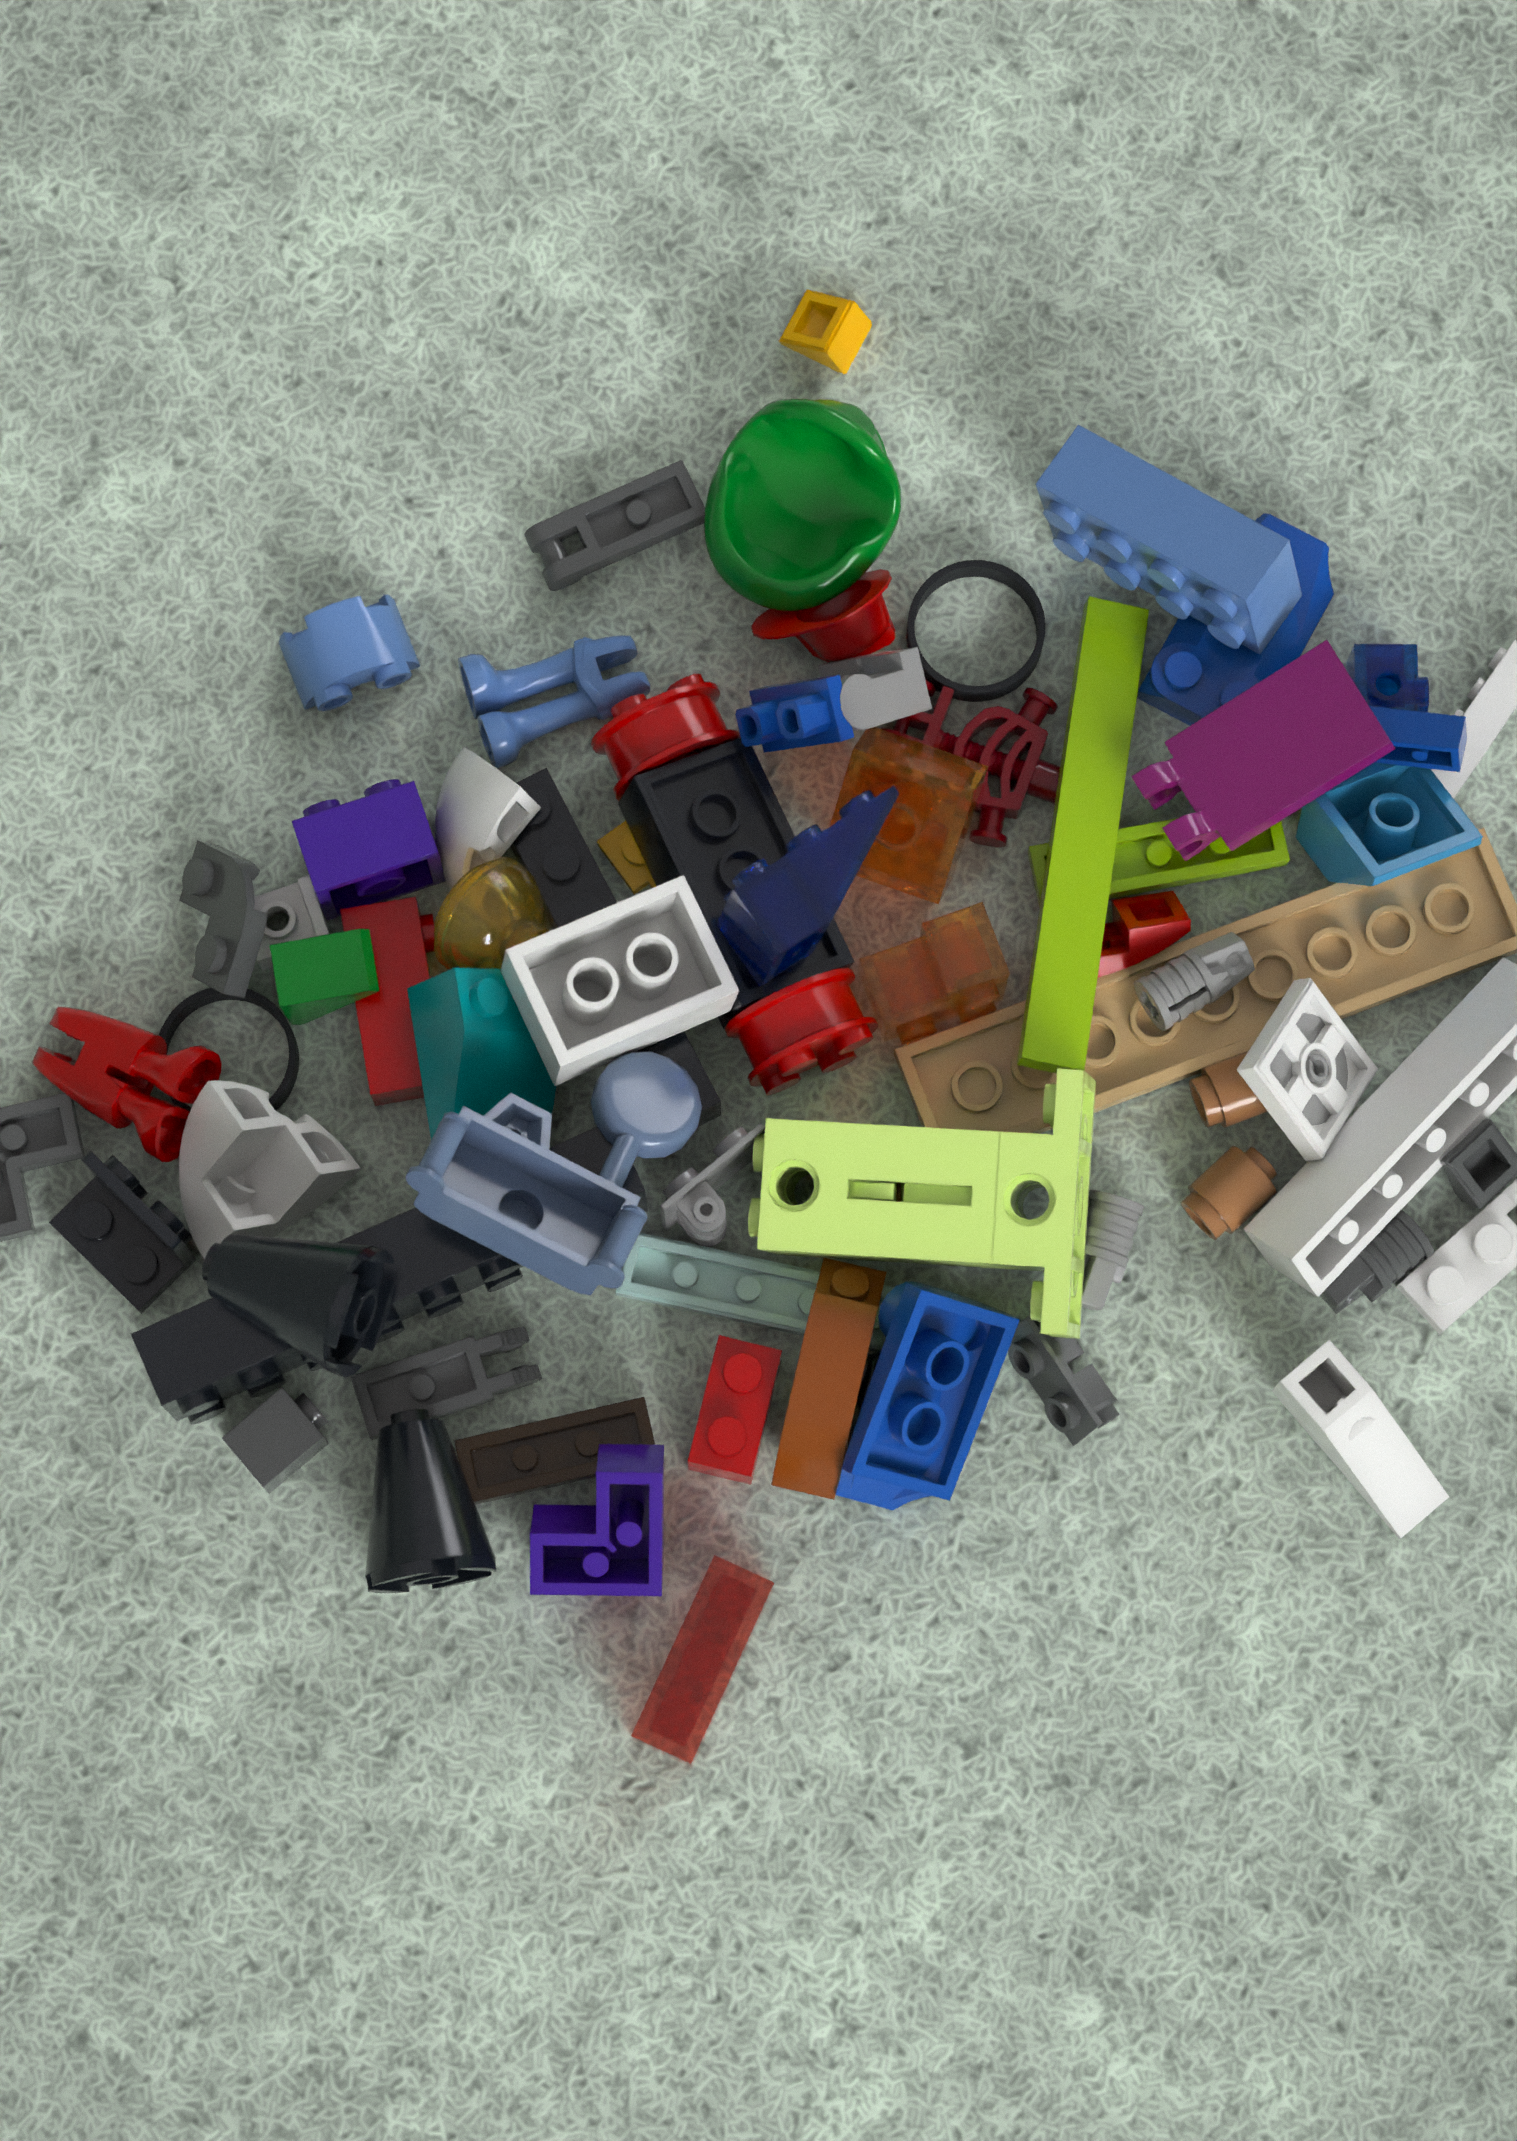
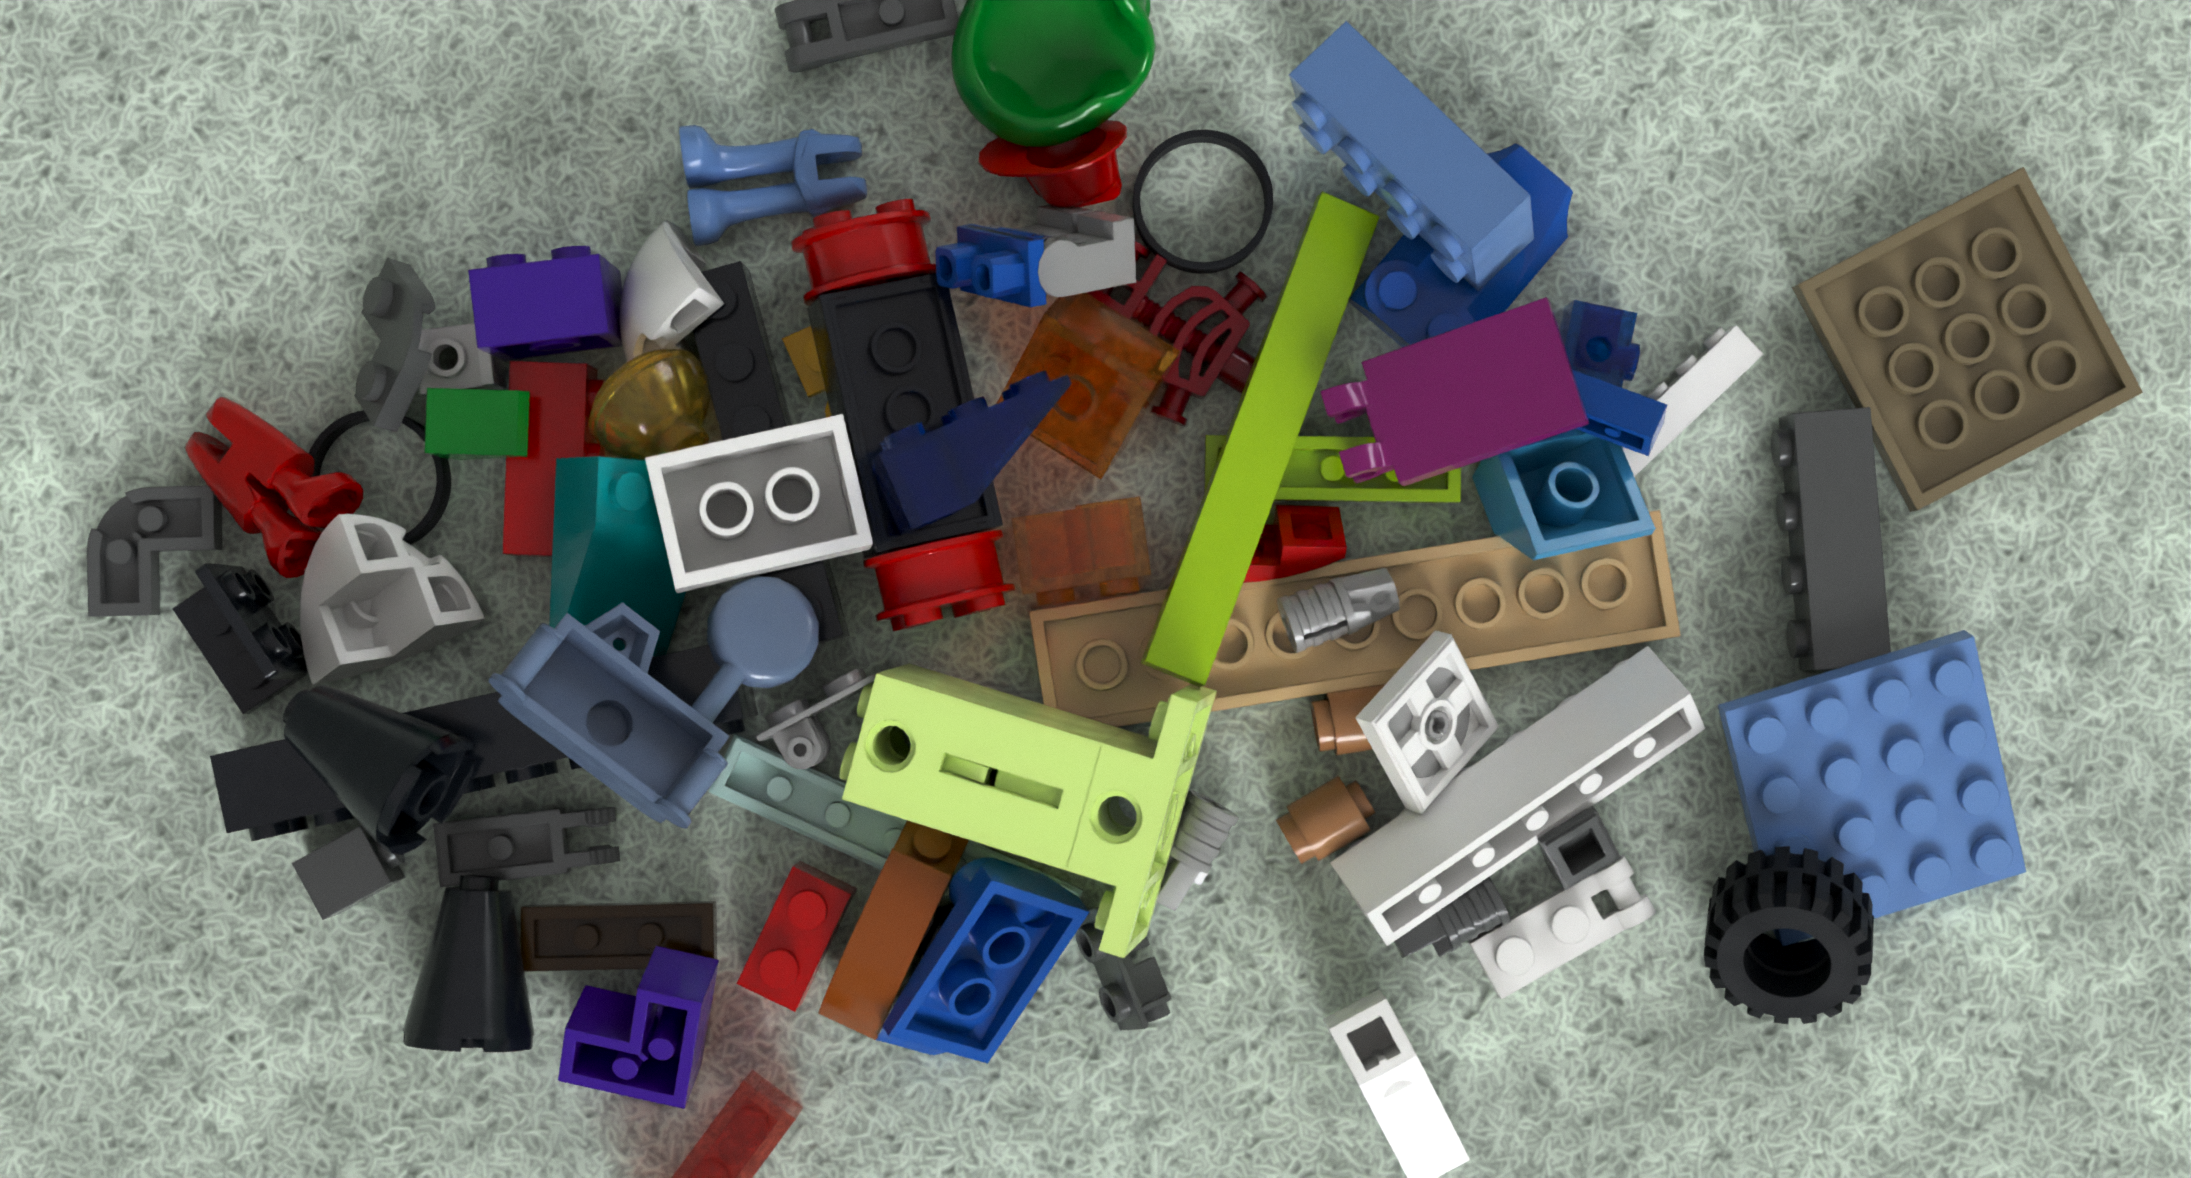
camera: 10 degrees right, 10 degrees up
(348, 648) = (578, 90): medium blue cylinder -> none

